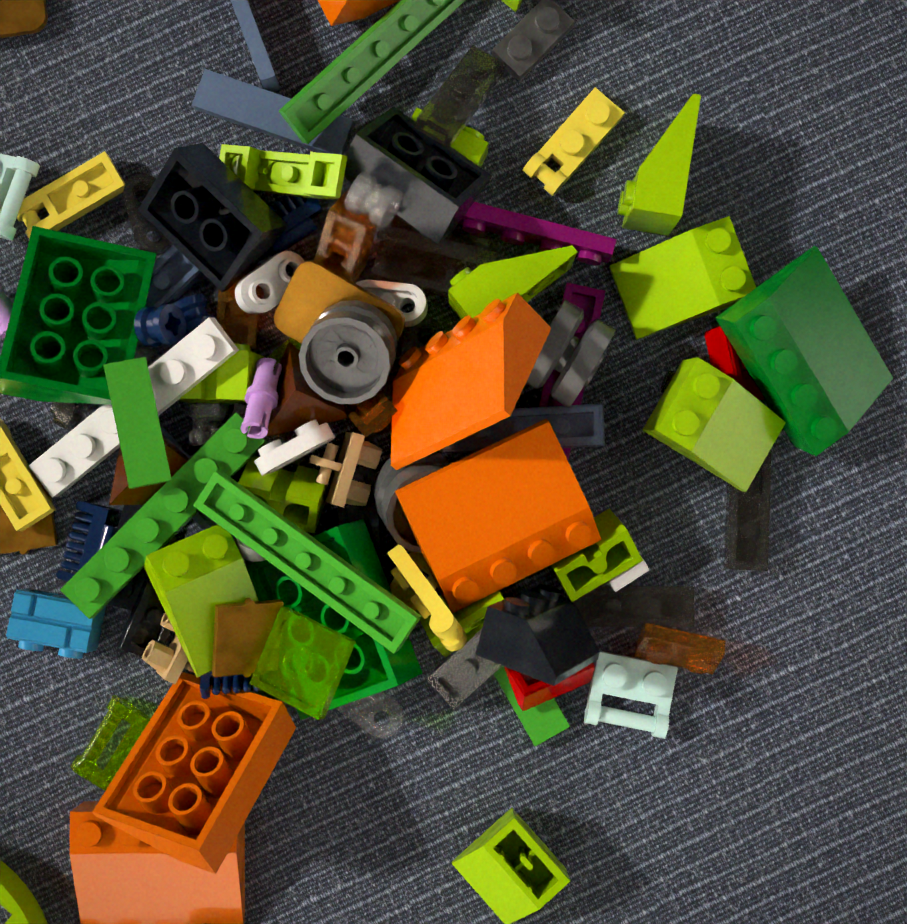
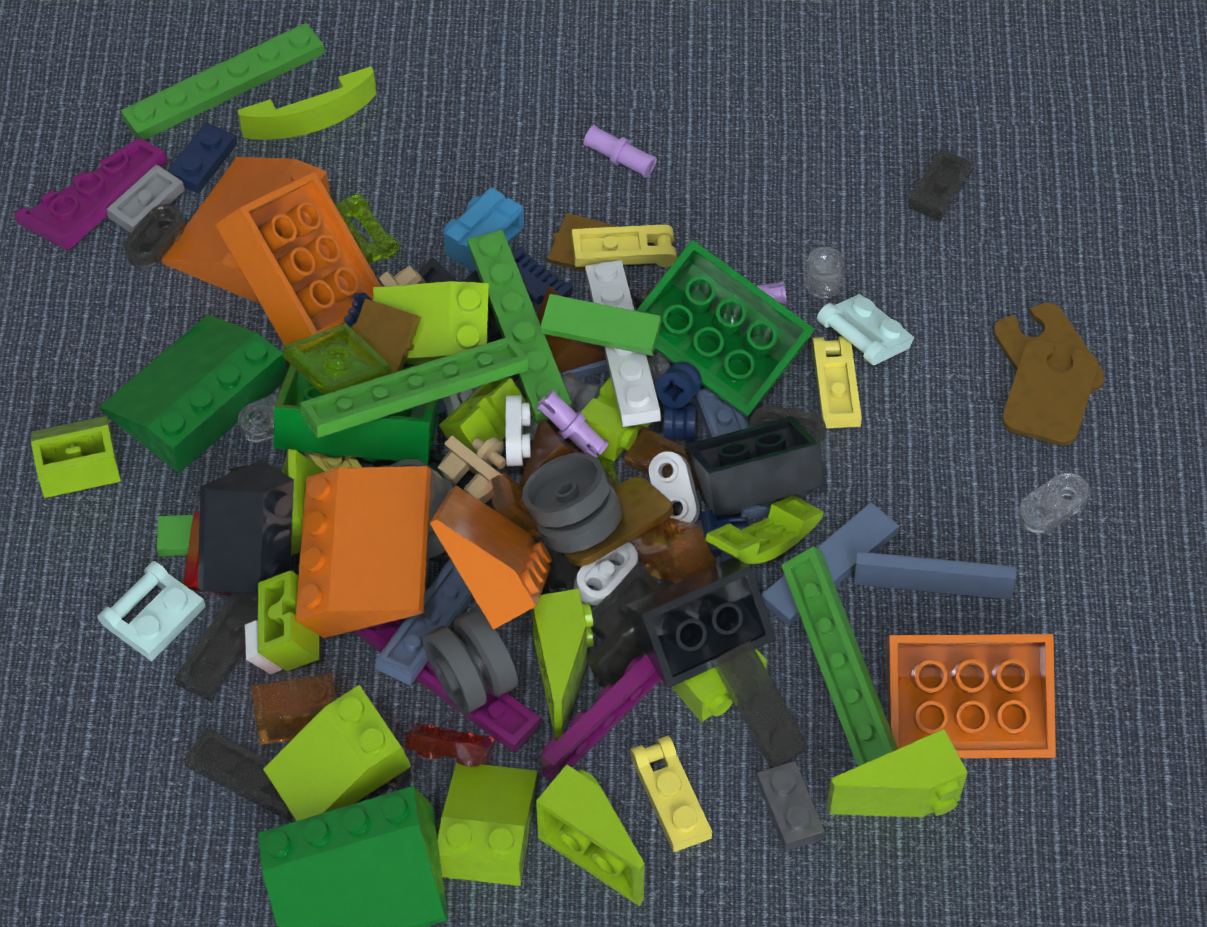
camera: 115 degrees right, 30 degrees down
(371, 199) = (687, 560): clear wheel -> none
(378, 799) = (196, 390): none -> green slope
(427, 600) = (306, 458): light yellow plate -> none
(630, 349) = (436, 741): none -> clear red plate
(669, 500) = (290, 705): none -> clear orange brick
(679, 648) = (150, 669): clear orange plate -> none

